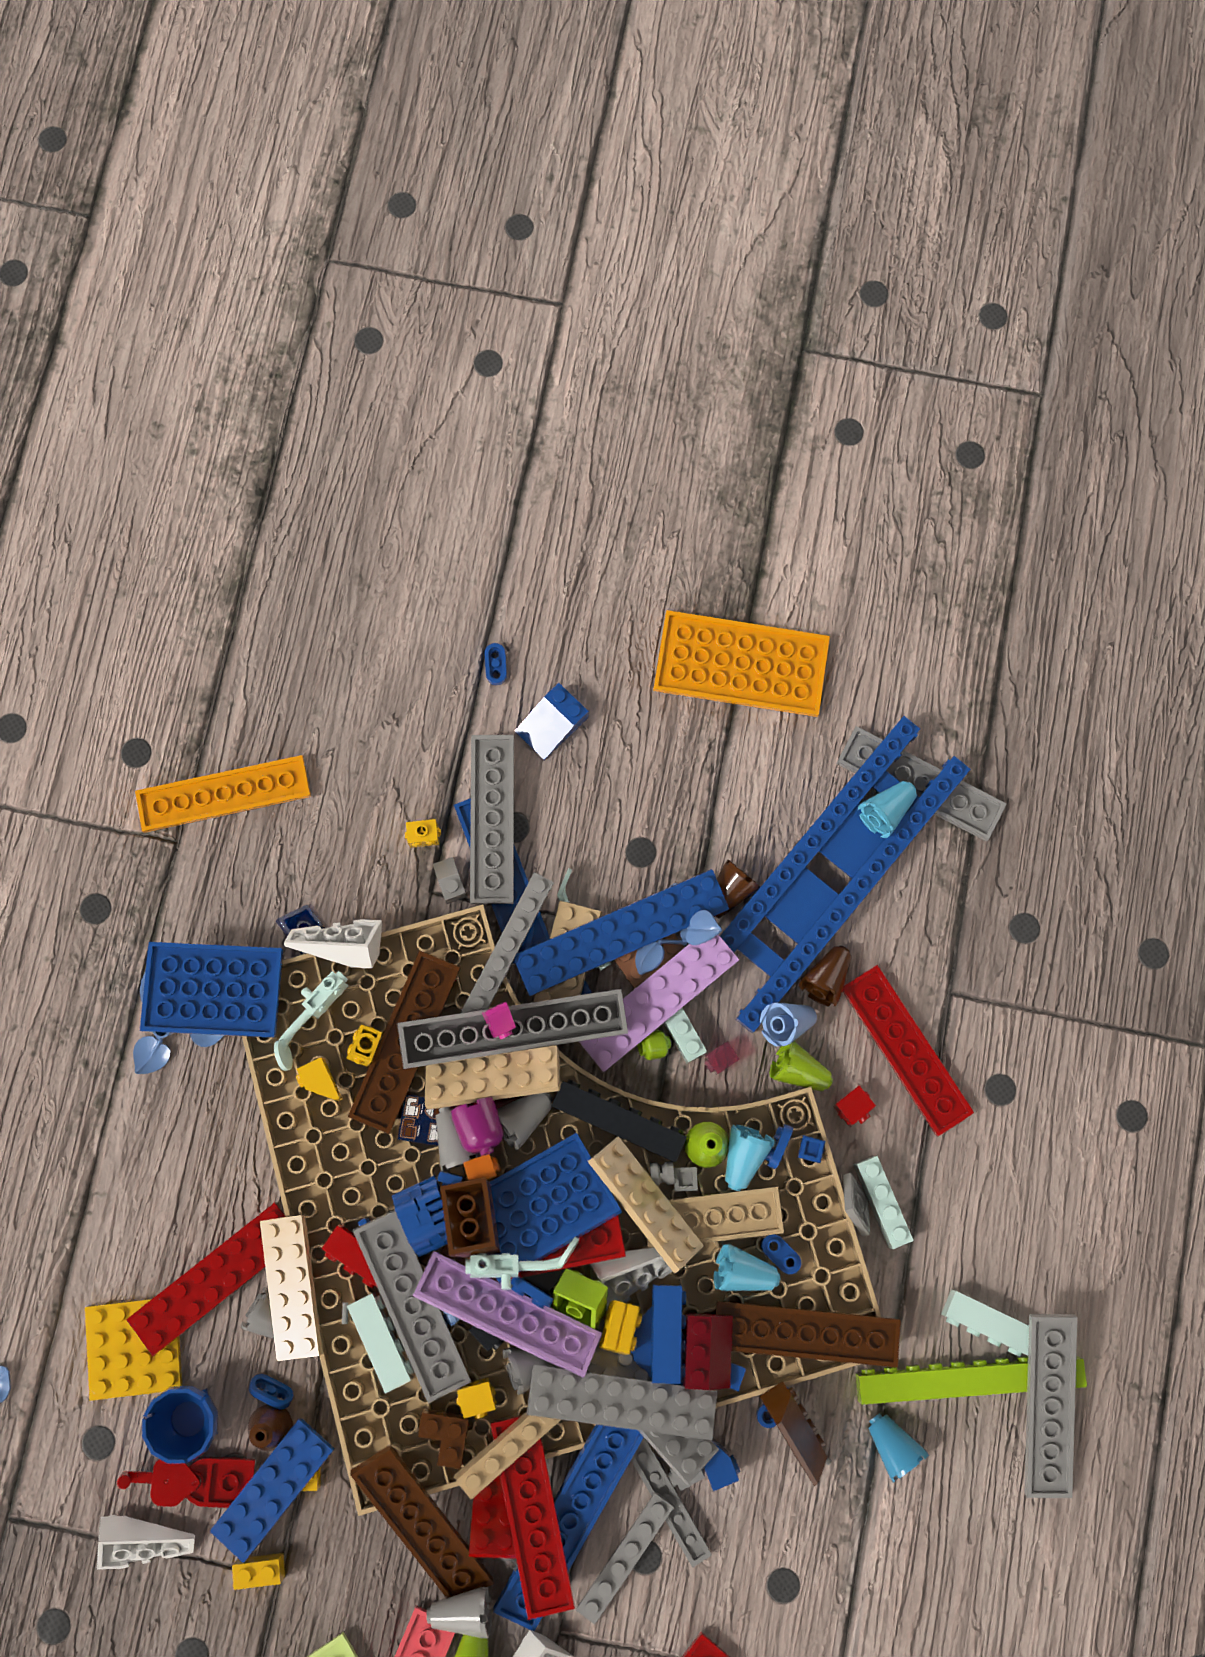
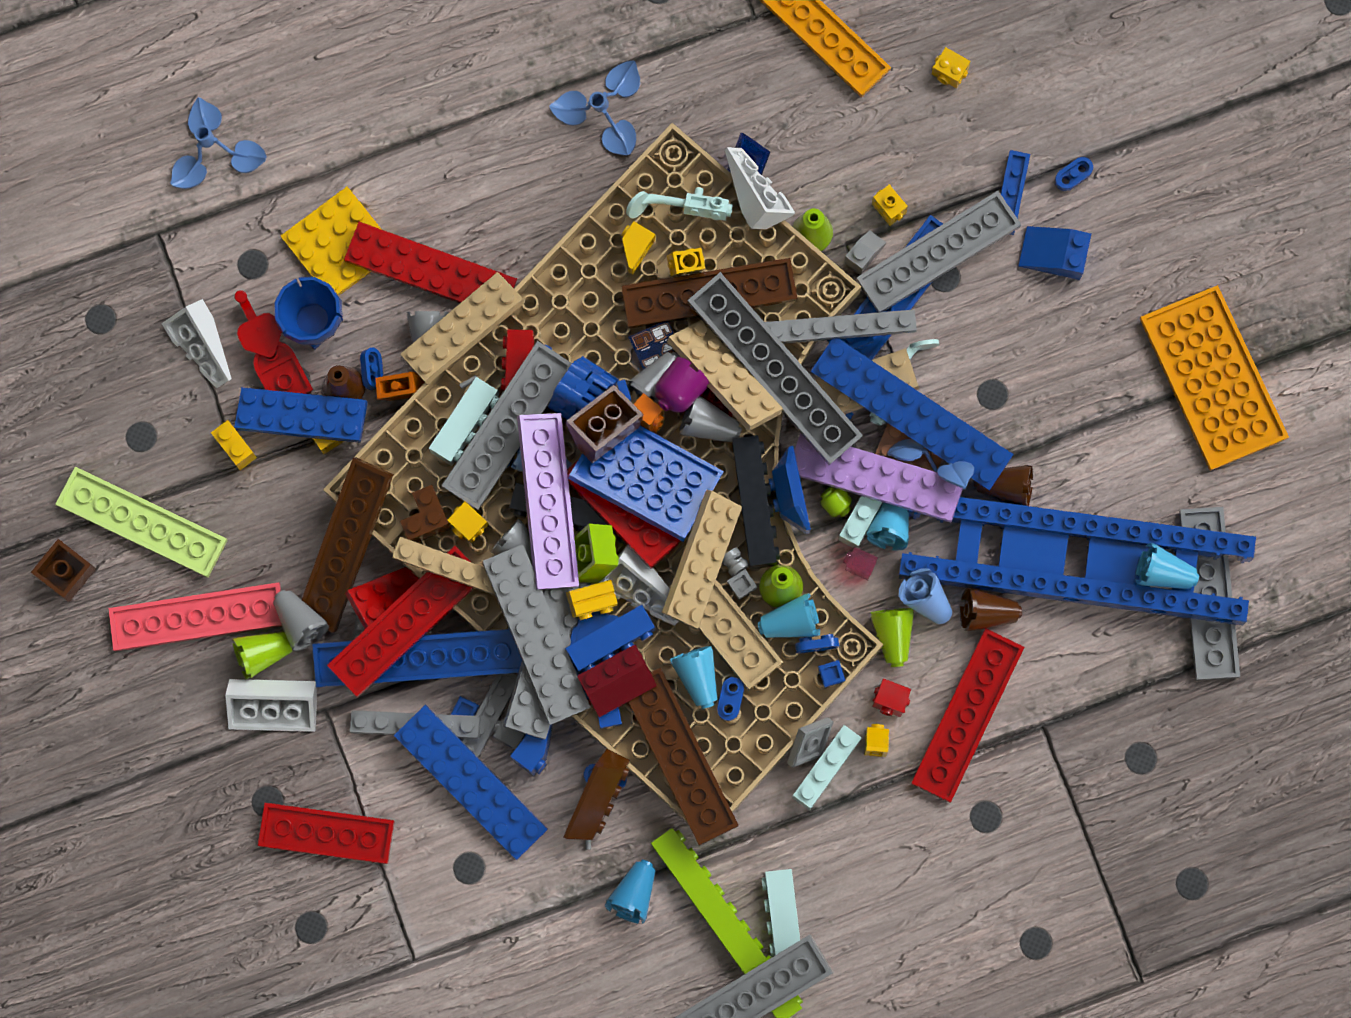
camera: 65 degrees right, 0 degrees up
(211, 989) = (653, 117): blue plate -> none
(304, 1380) = (398, 386): none -> orange brick
(336, 706) = (950, 68): none -> yellow head
(409, 913) = (815, 228): none -> lime cone
(469, 715) = (1014, 180): none -> blue plate
(499, 1020) = (773, 349): dark pink slope -> none
(508, 1265) = (586, 474): light aqua piece -> none
(539, 1297) = (576, 516): blue plate -> none
(628, 1084) = (789, 492): none -> blue wedge
(637, 1499) = (465, 707): none -> blue tile
(707, 1013) = (890, 528): none -> medium azure cone
(709, 1539) = (471, 782): none -> blue plate
(886, 1143) = (876, 741): none -> yellow slope

